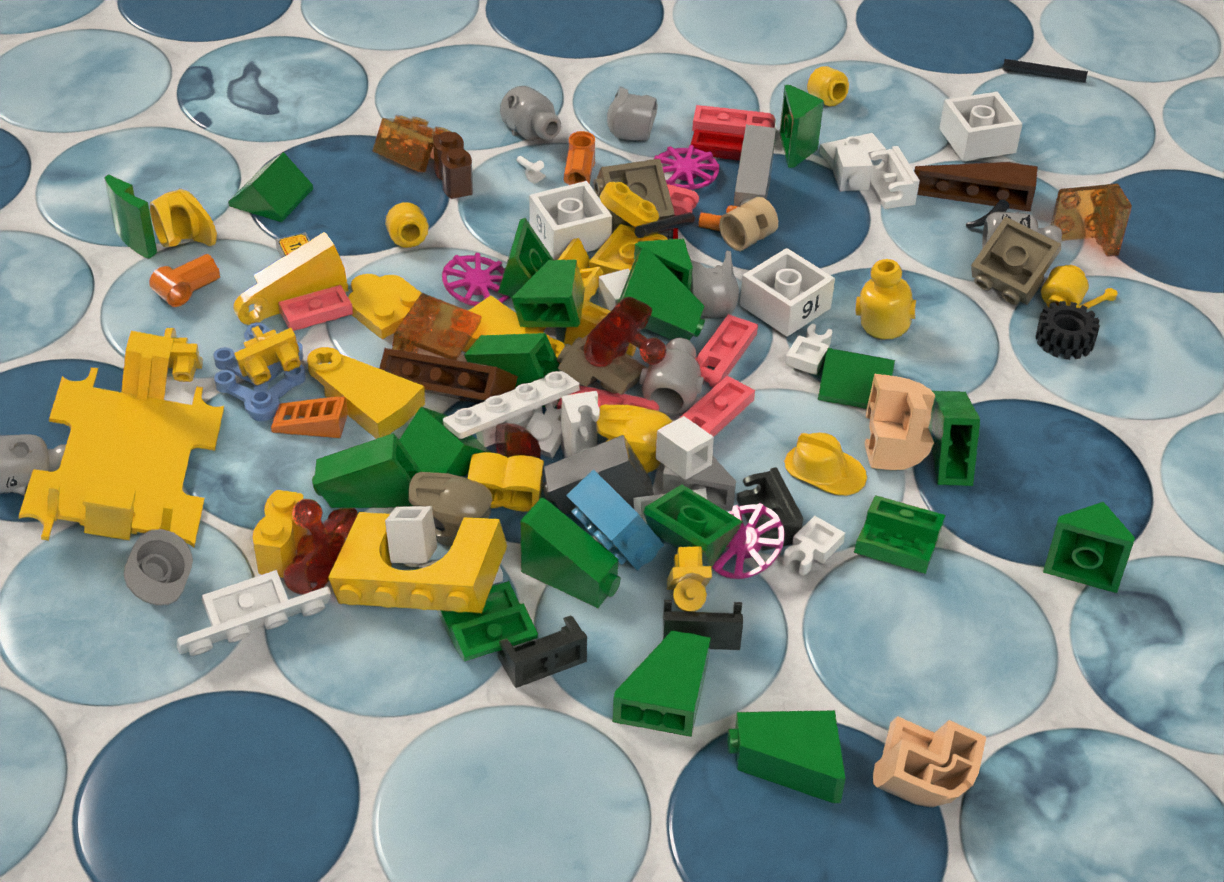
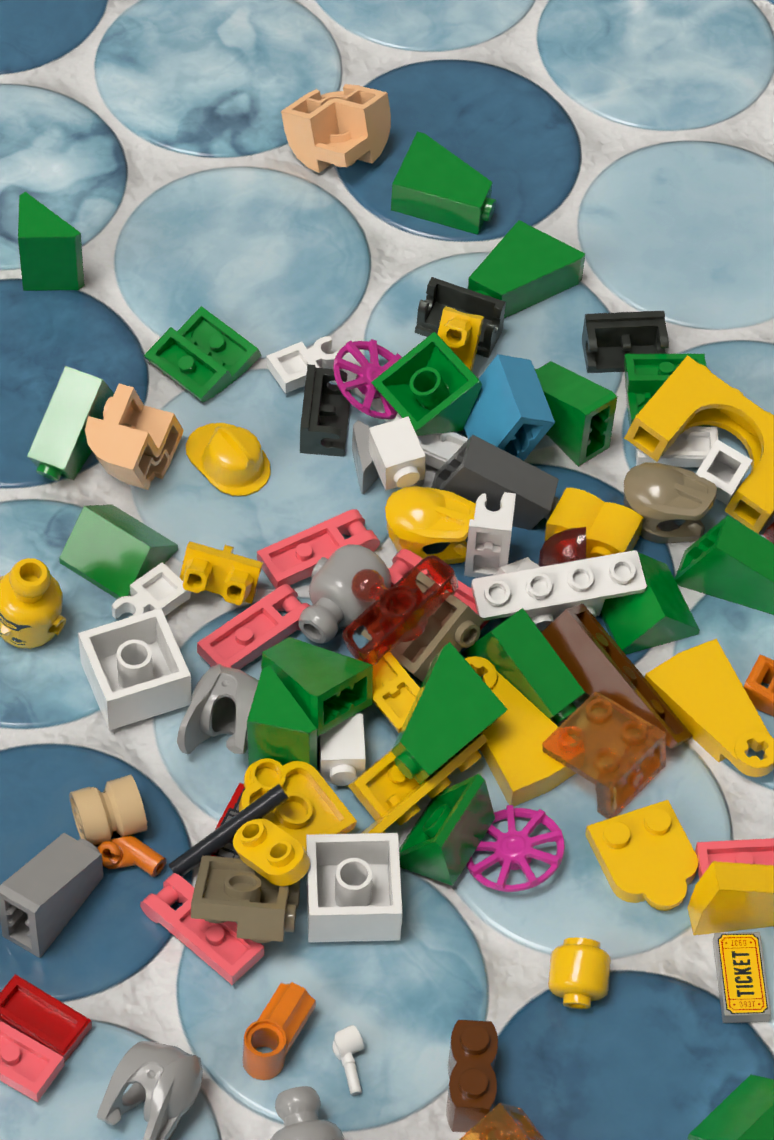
camera: 160 degrees left, 10 degrees up
(687, 168) = (121, 980): dark pink wheel -> none
(774, 372) = (220, 573): none -> yellow hips

